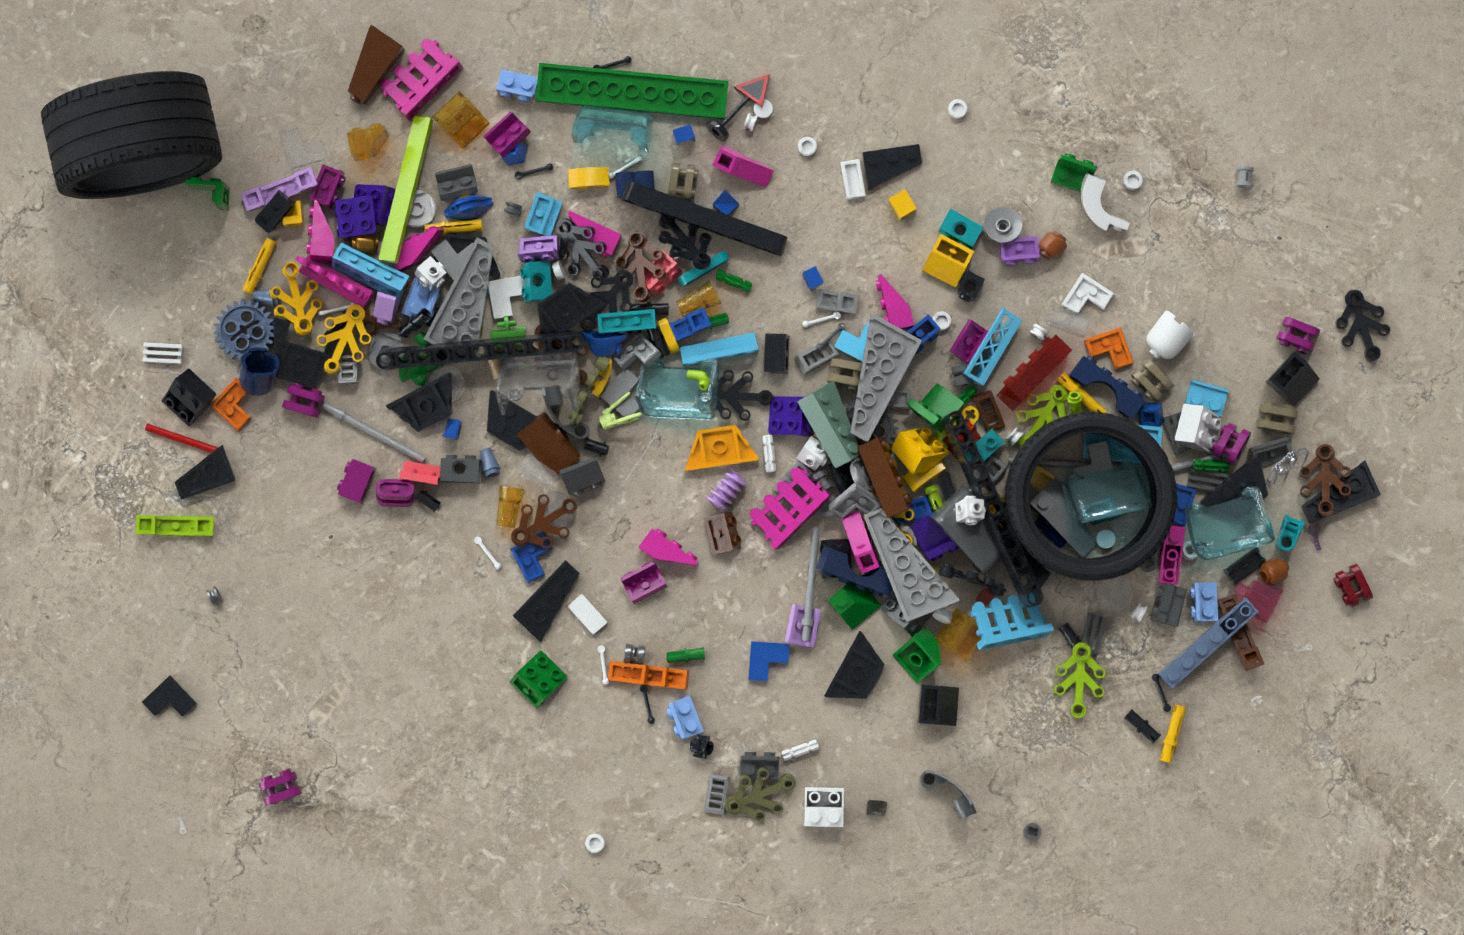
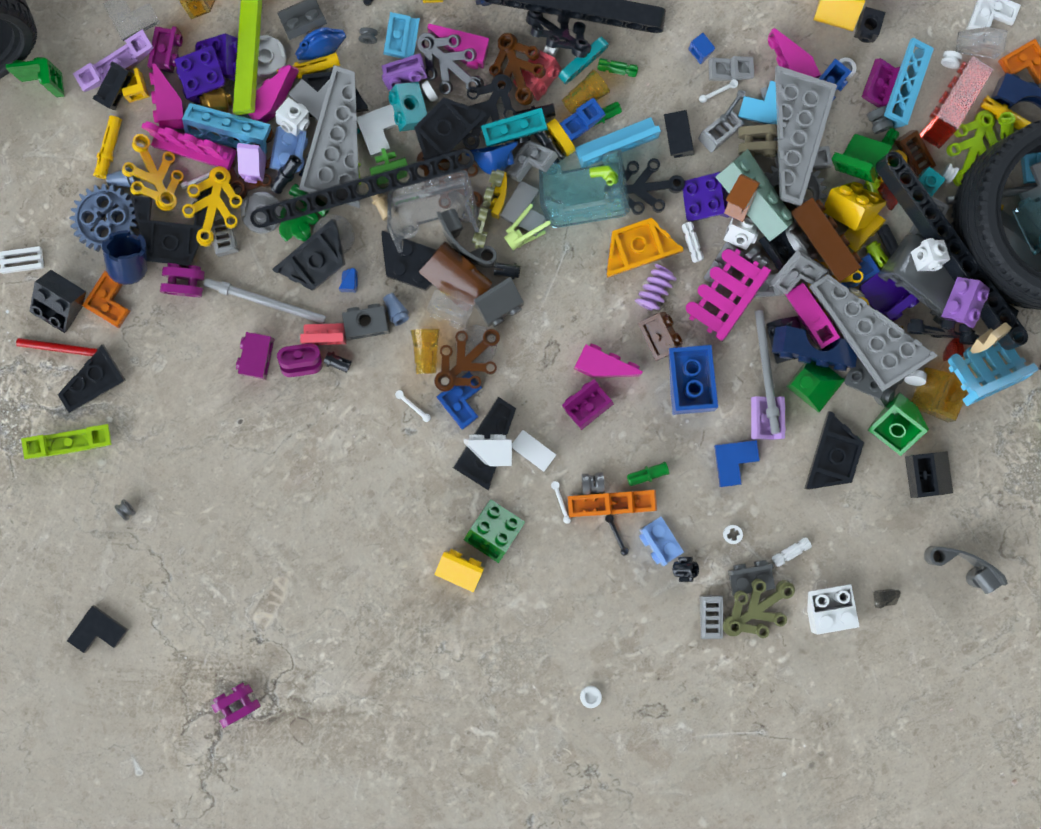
camera: 20 degrees left, 0 degrees up
(500, 708) = (459, 570): none -> yellow slope
(551, 607) = (492, 450): none -> white slope
(741, 578) = (692, 380): none -> blue slope
(746, 720) = (738, 537): none -> white bush
(815, 425) = (741, 197): none -> dark orange slope
(992, 558) = (966, 301): none -> medium lavender bracket
(1010, 594) = (990, 338): none -> tan slope

